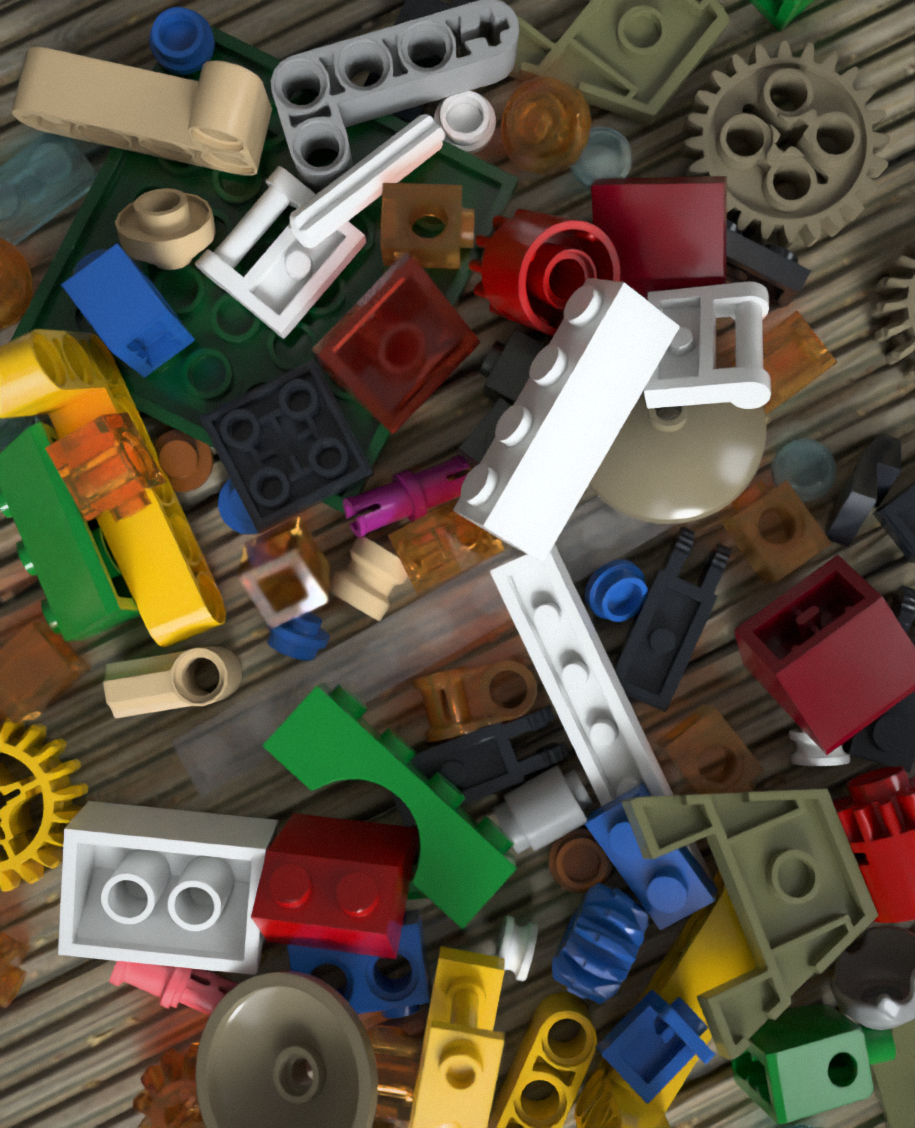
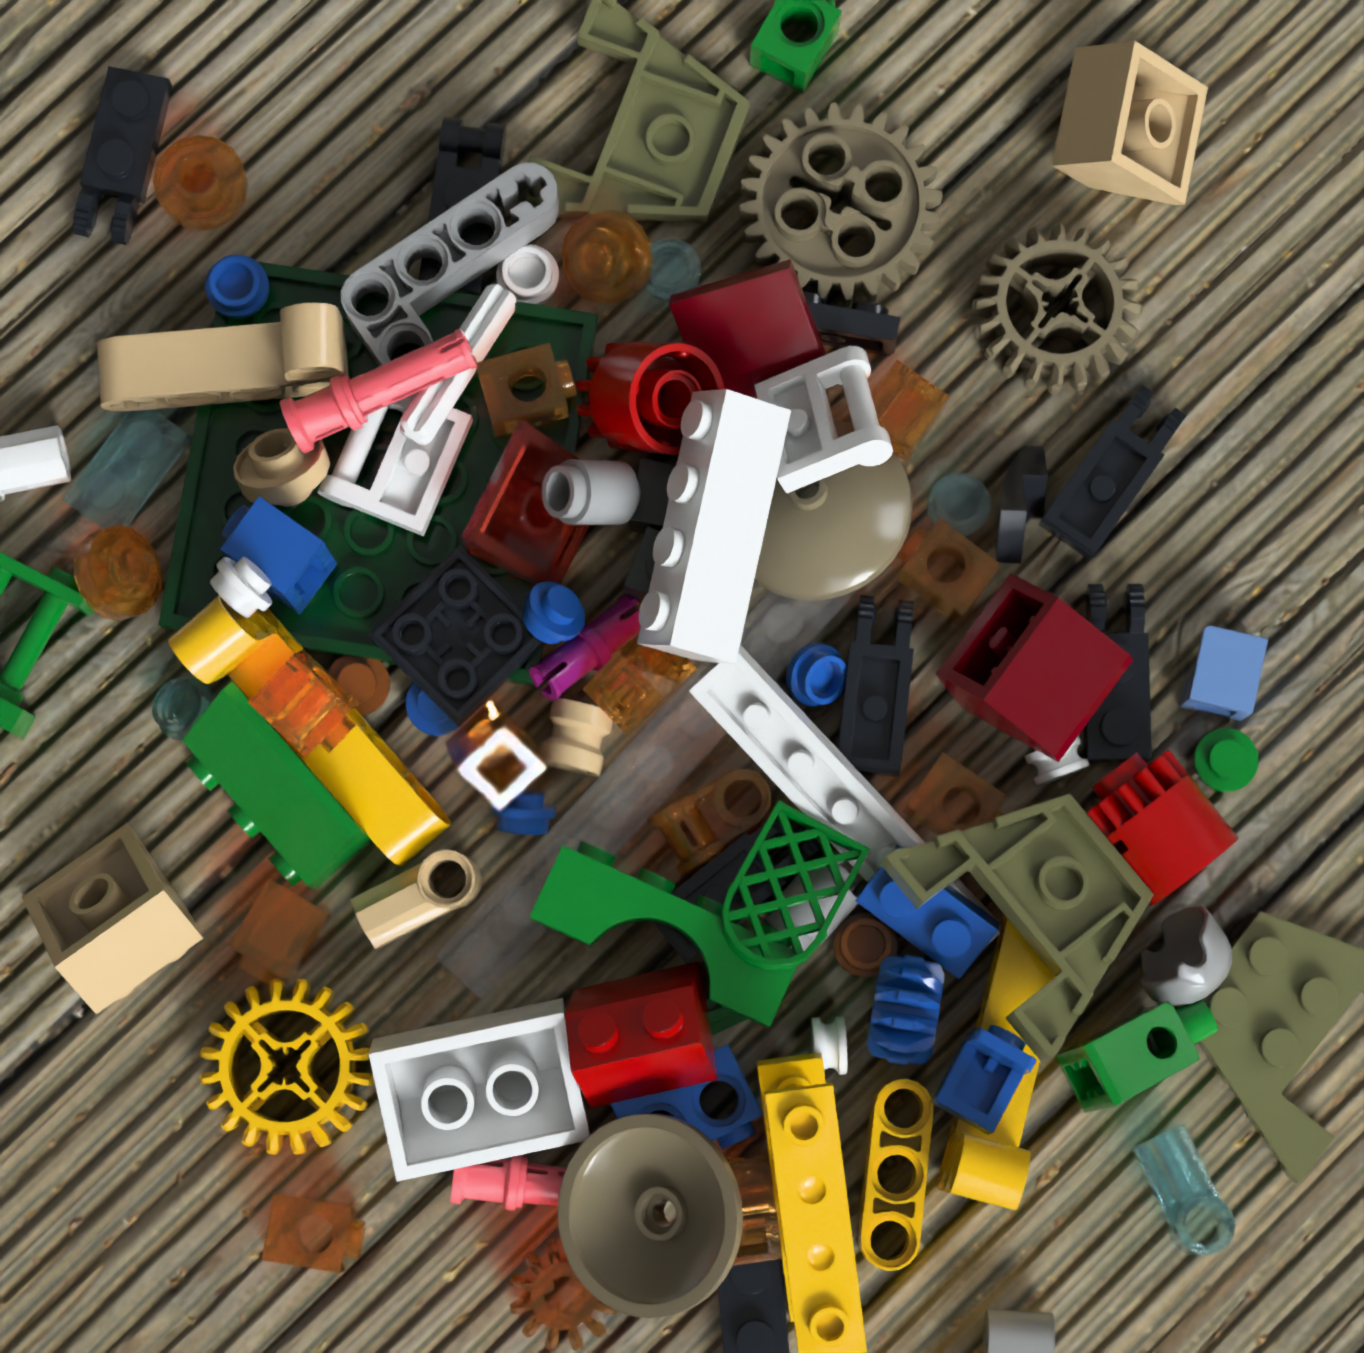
camera: 20 degrees left, 5 degrees down
(67, 328) = (242, 585): none -> white plate
(249, 180) = (349, 400): none -> coral pin
(382, 452) = (553, 613): none -> blue plate
(455, 346) = (591, 492): none -> light grey brick
(545, 844) = (816, 830): none -> green window

